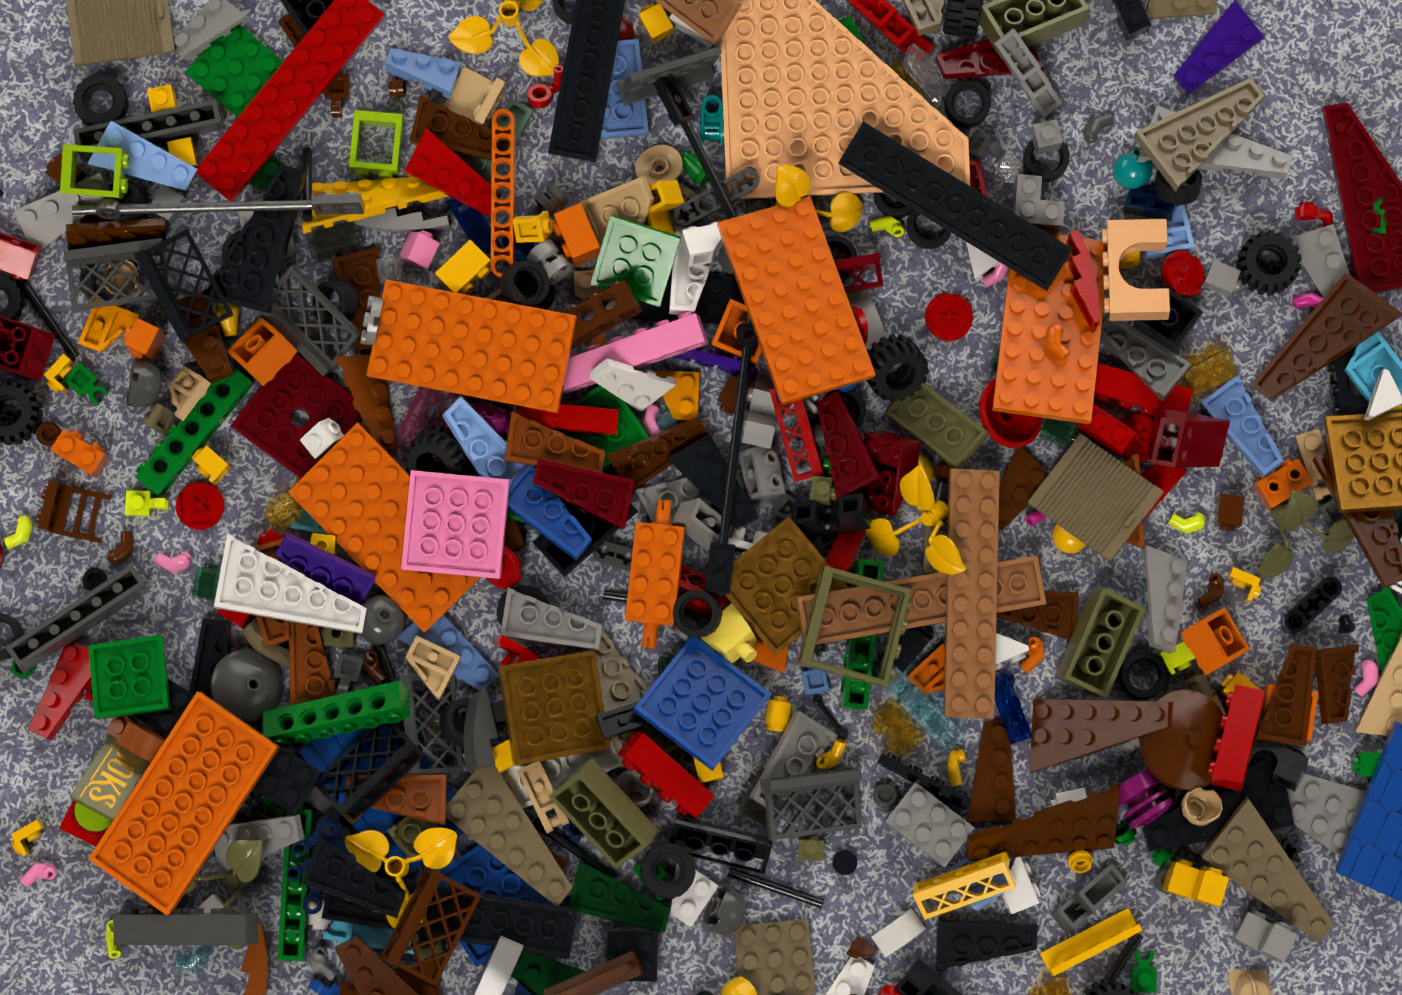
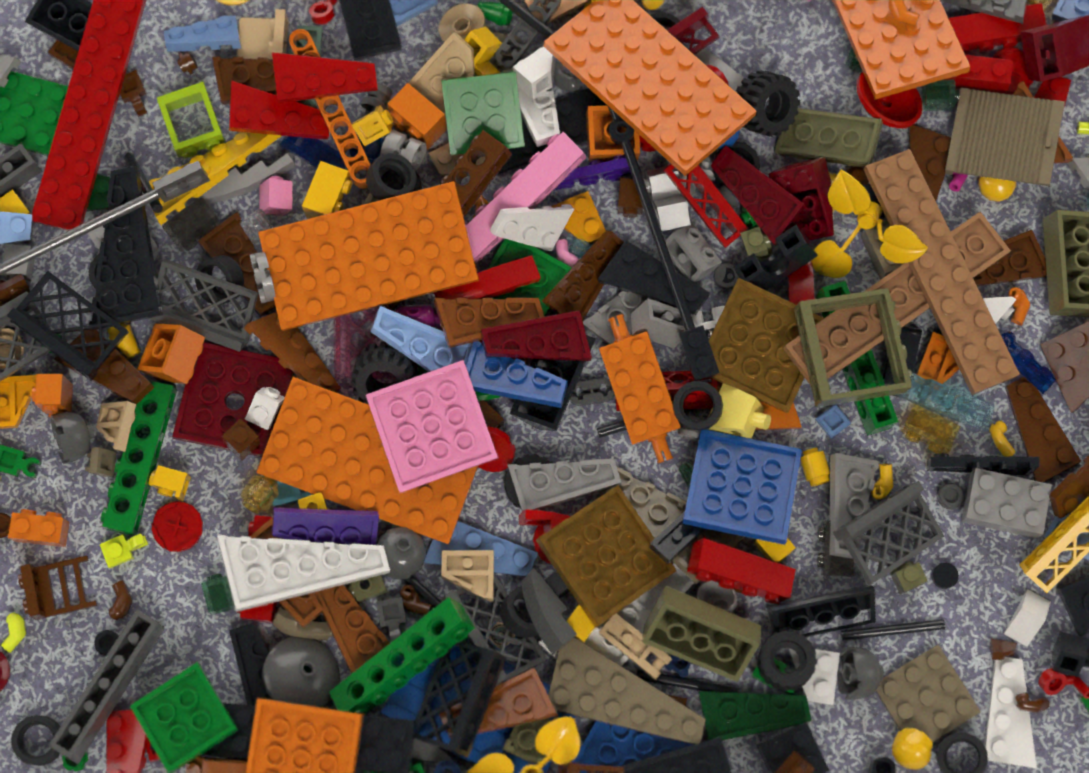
camera: 25 degrees left, 5 degrees down
(174, 564) = (178, 592): bright pink arm -> none
(287, 457) = (241, 439): none -> reddish brown brick
(499, 161) = (317, 77): none -> red wing
(842, 733) = (844, 438): black hinge -> none
(949, 317) = (789, 41): red tile -> none

